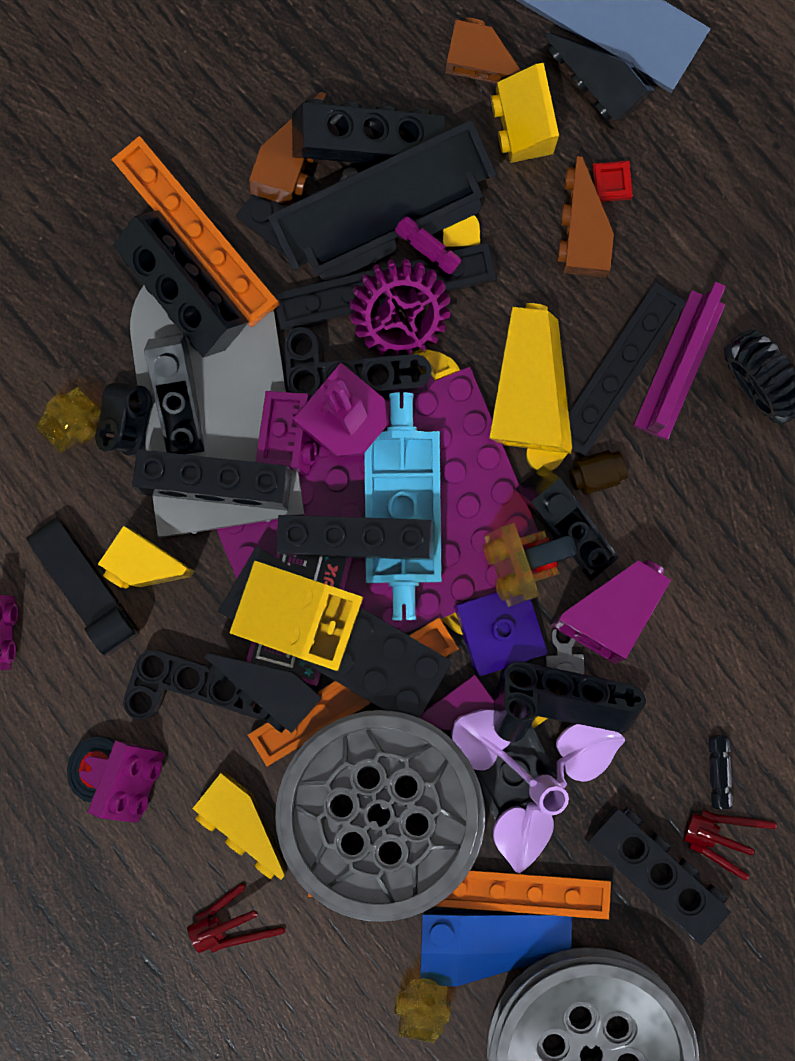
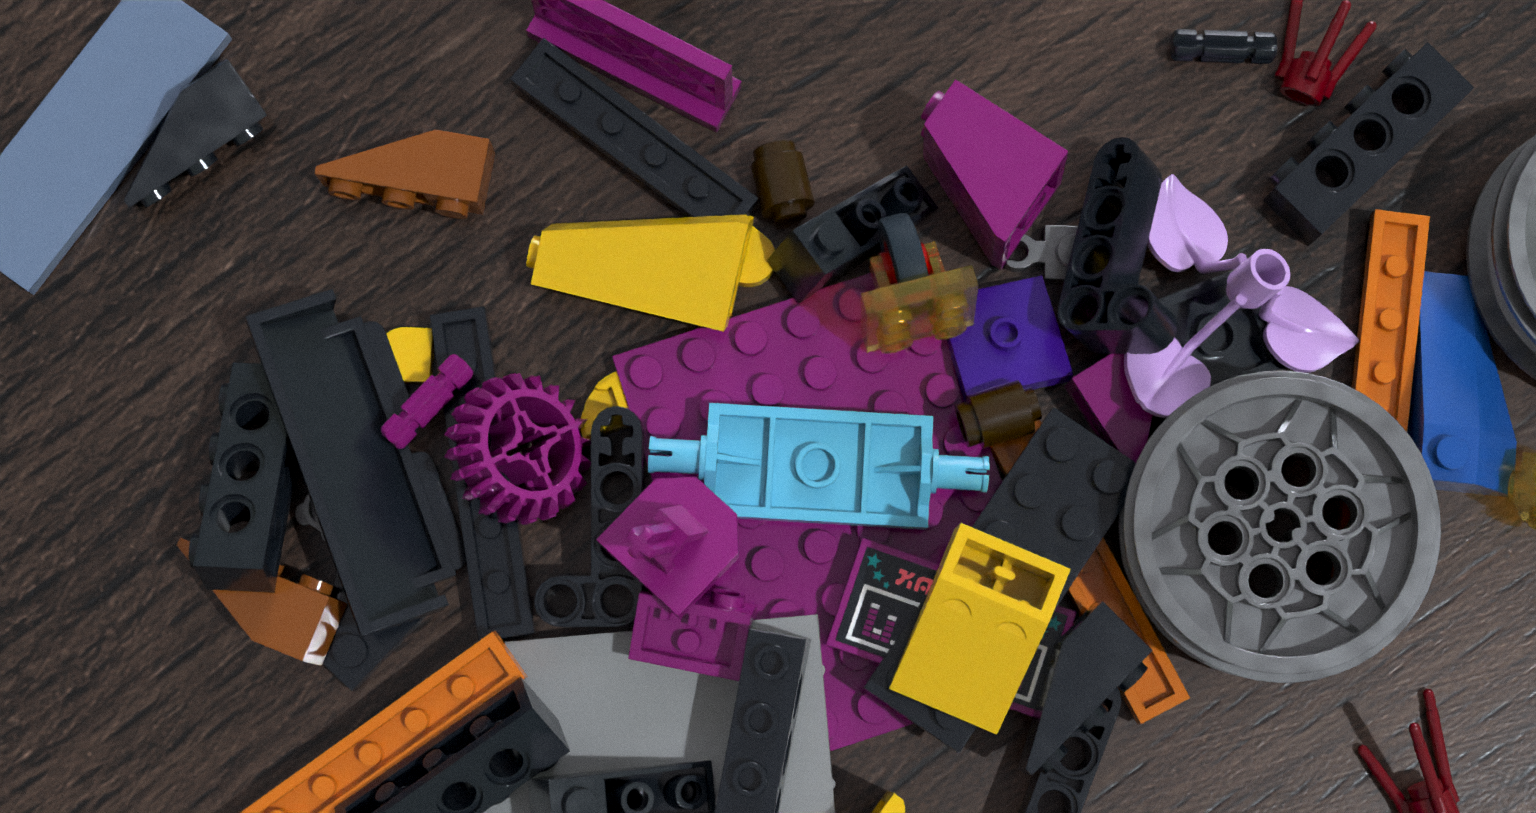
camera: 90 degrees left, 5 degrees down
(237, 815) = (1259, 749): yellow slope -> none
(355, 537) = (864, 534): black brick -> none
(445, 625) = (998, 414): none -> dark brown brick
(479, 53) = (145, 305): dark orange slope -> none
(526, 115) = (243, 242): yellow slope -> none
(612, 181) = (353, 129): red tile -> none

